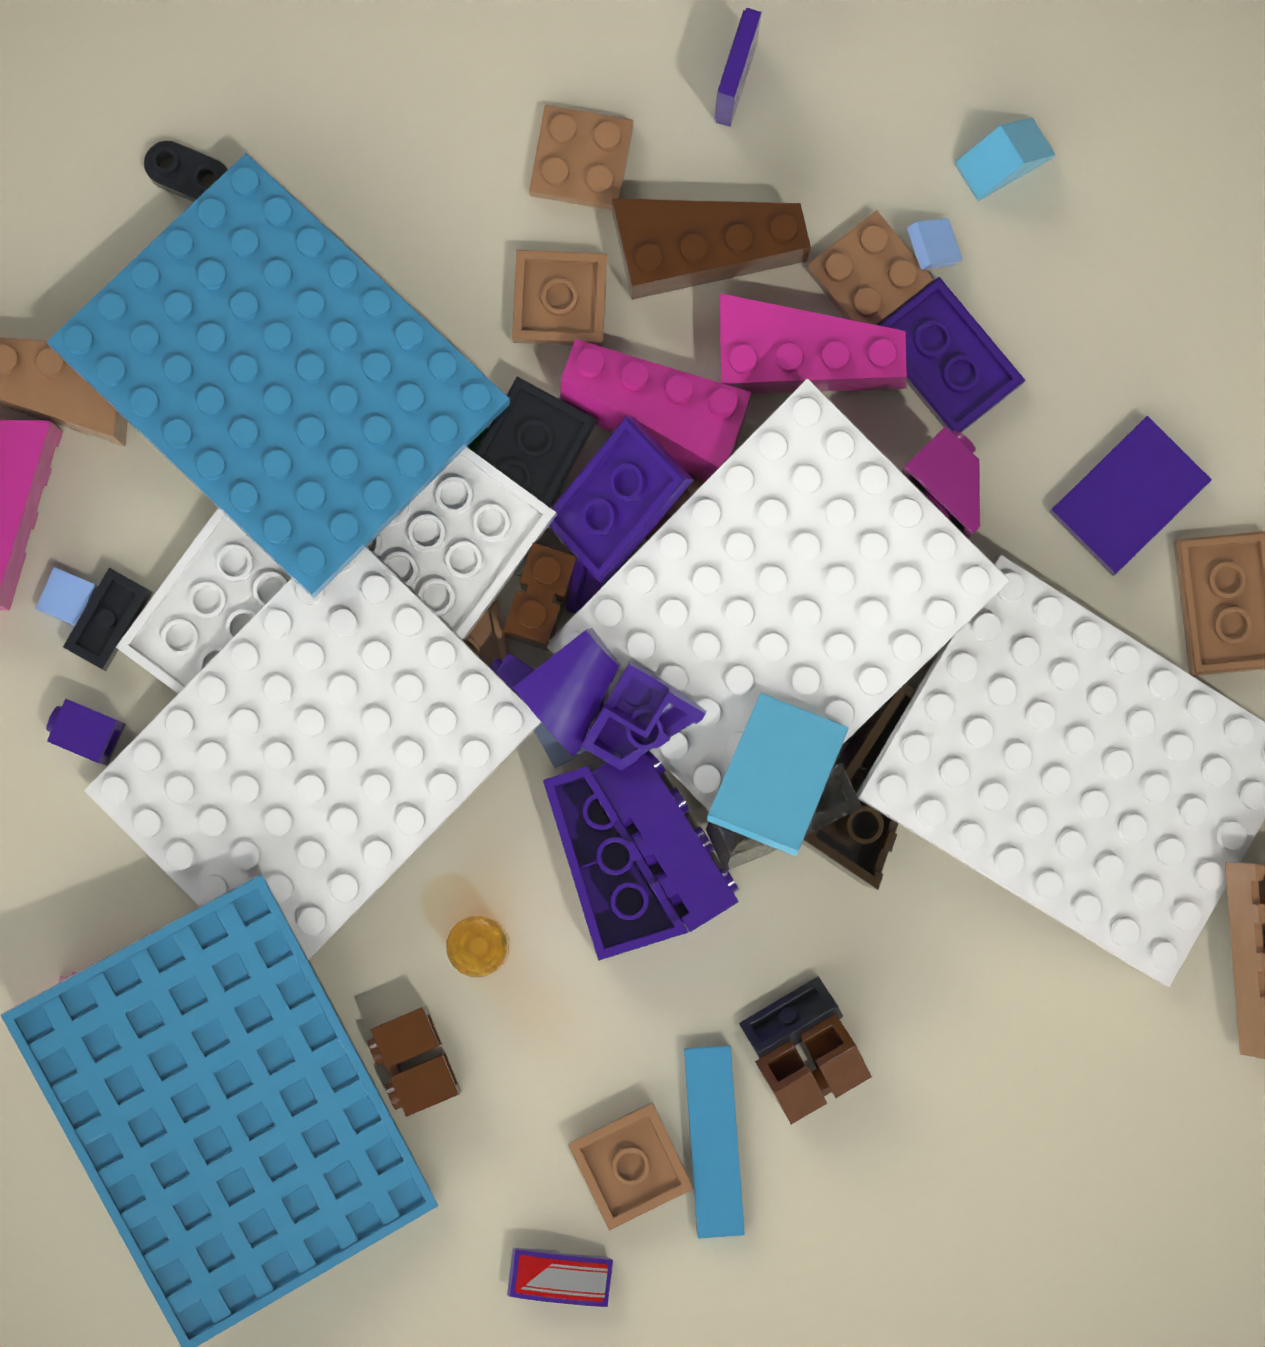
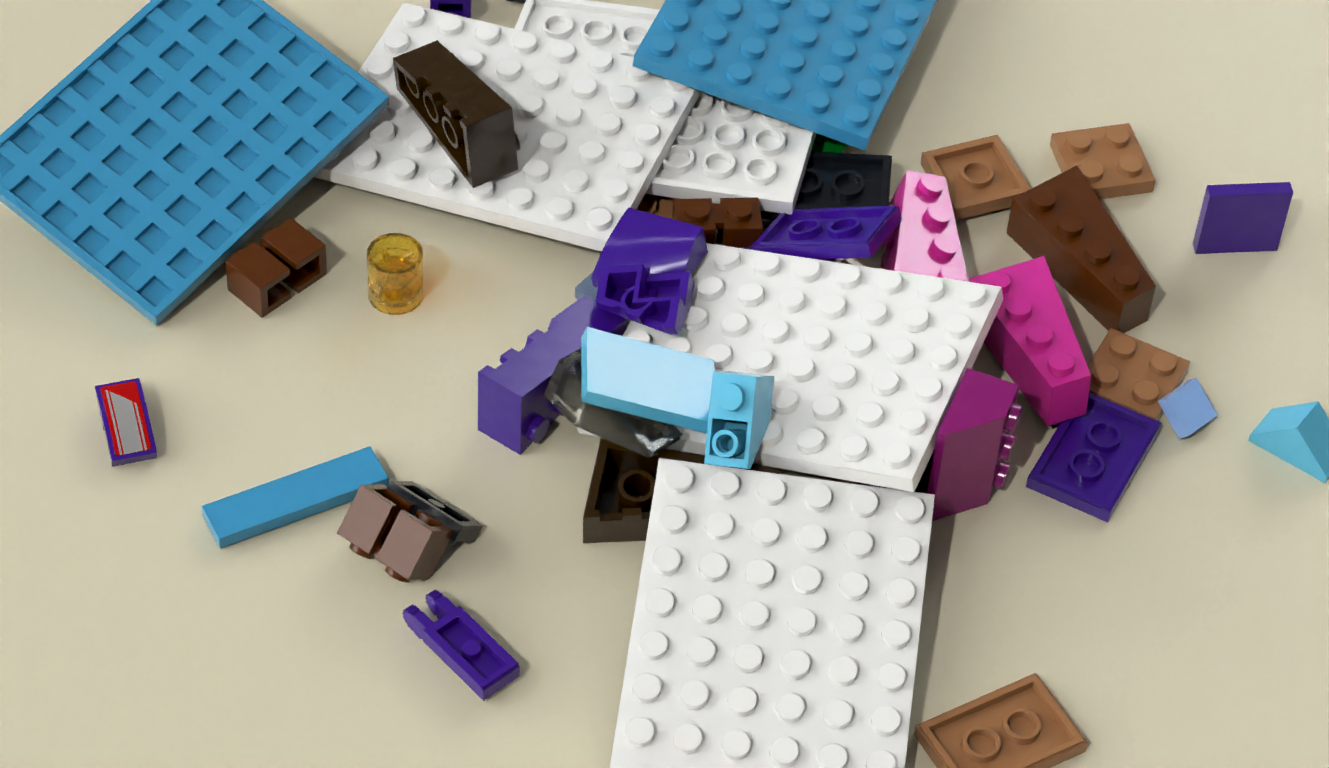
camera: 65 degrees right, 35 degrees down
(308, 812) = (459, 112): none -> dark brown wedge
(612, 880) = (494, 325): dark purple wedge -> none
(630, 1166) = (247, 439): medium nougat plate -> none
(860, 707) = (737, 417): none -> medium azure slope
(956, 1049) = (463, 645): none -> dark purple hinge
(1130, 495) = (1054, 627): dark purple tile -> none

